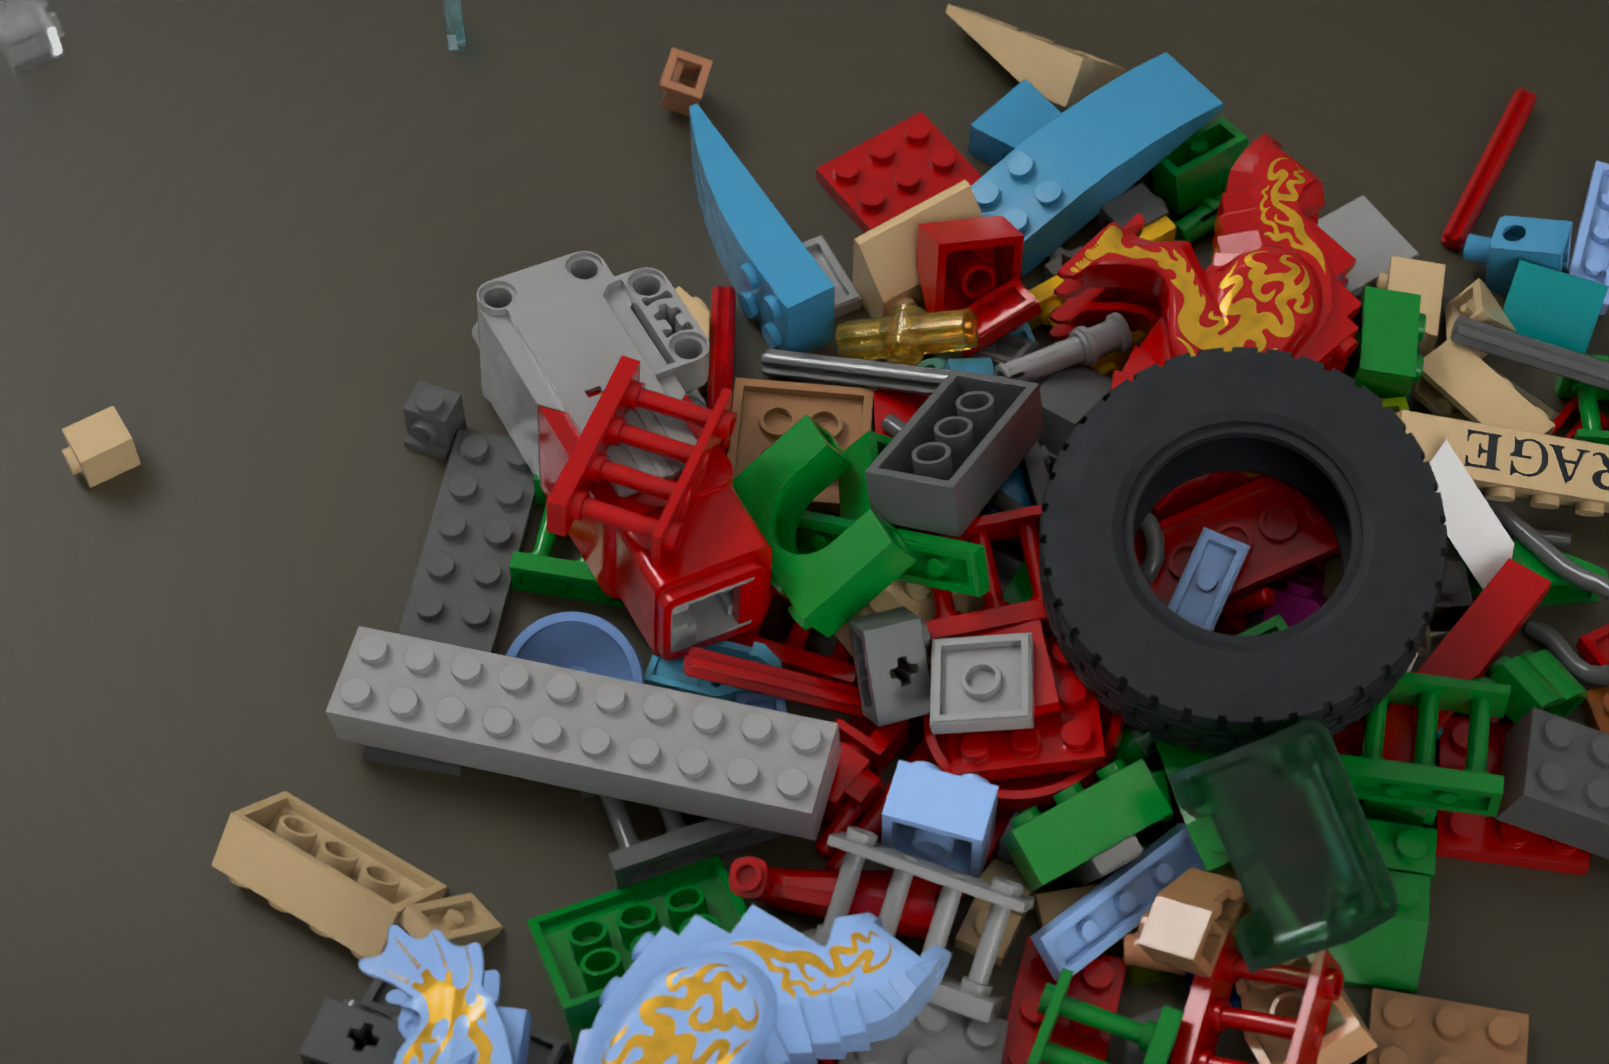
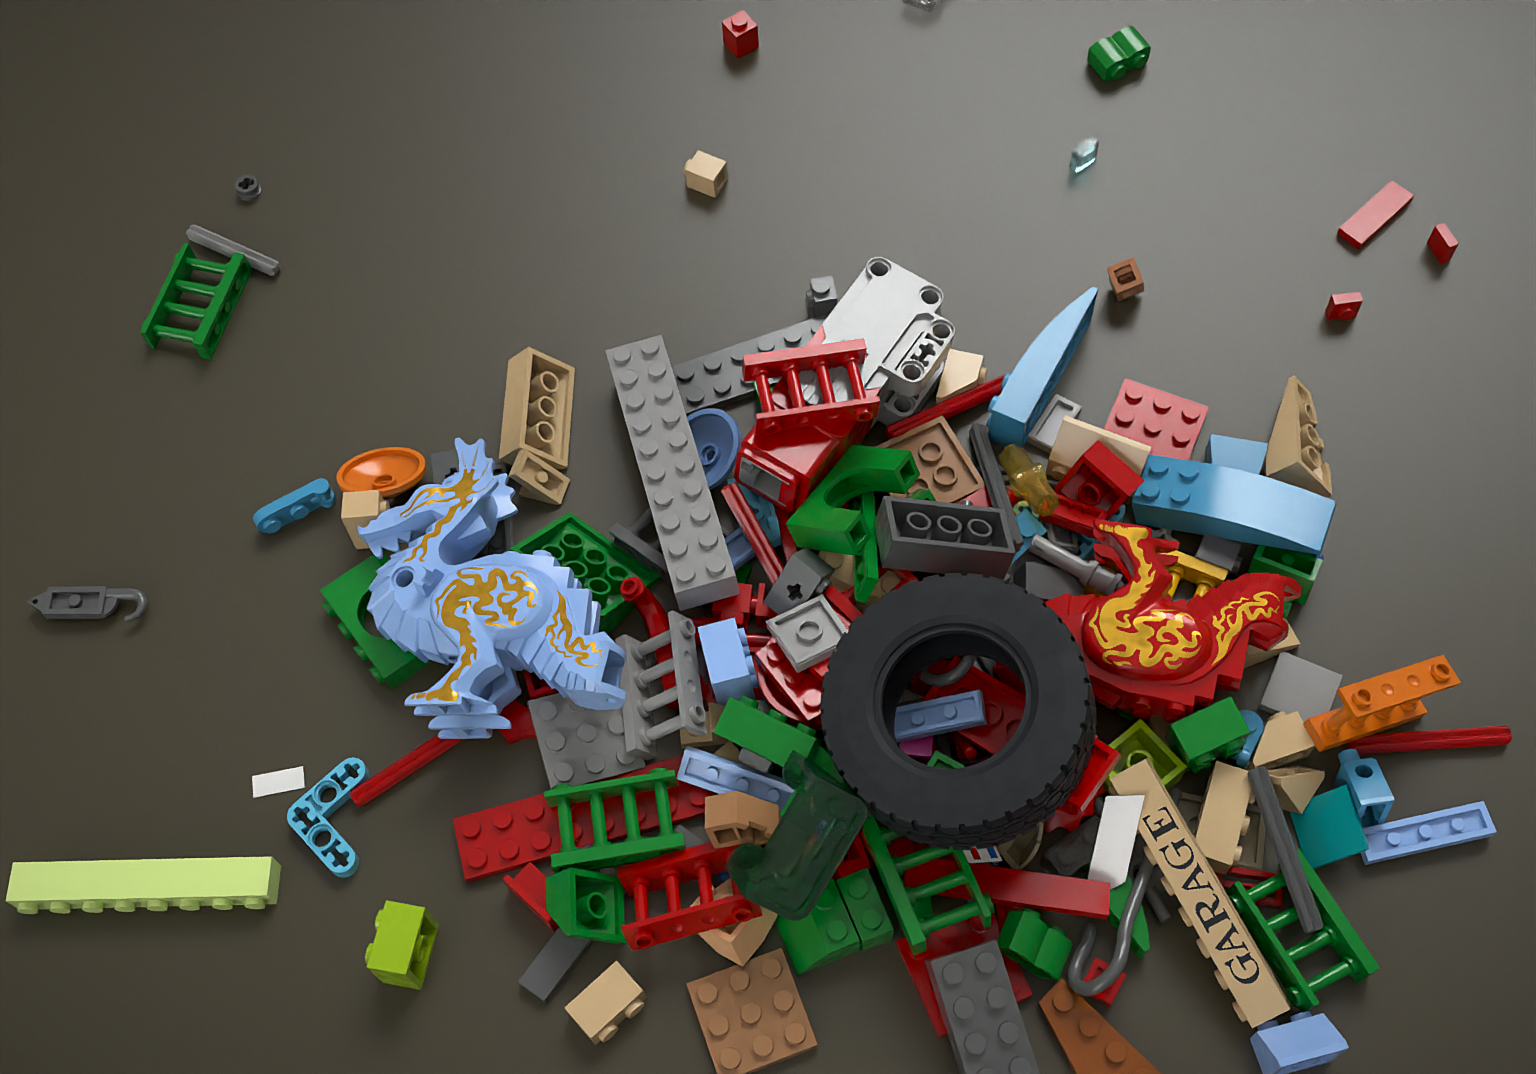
camera: 65 degrees right, 5 degrees up
(1442, 166) = (1381, 703): none -> orange fence

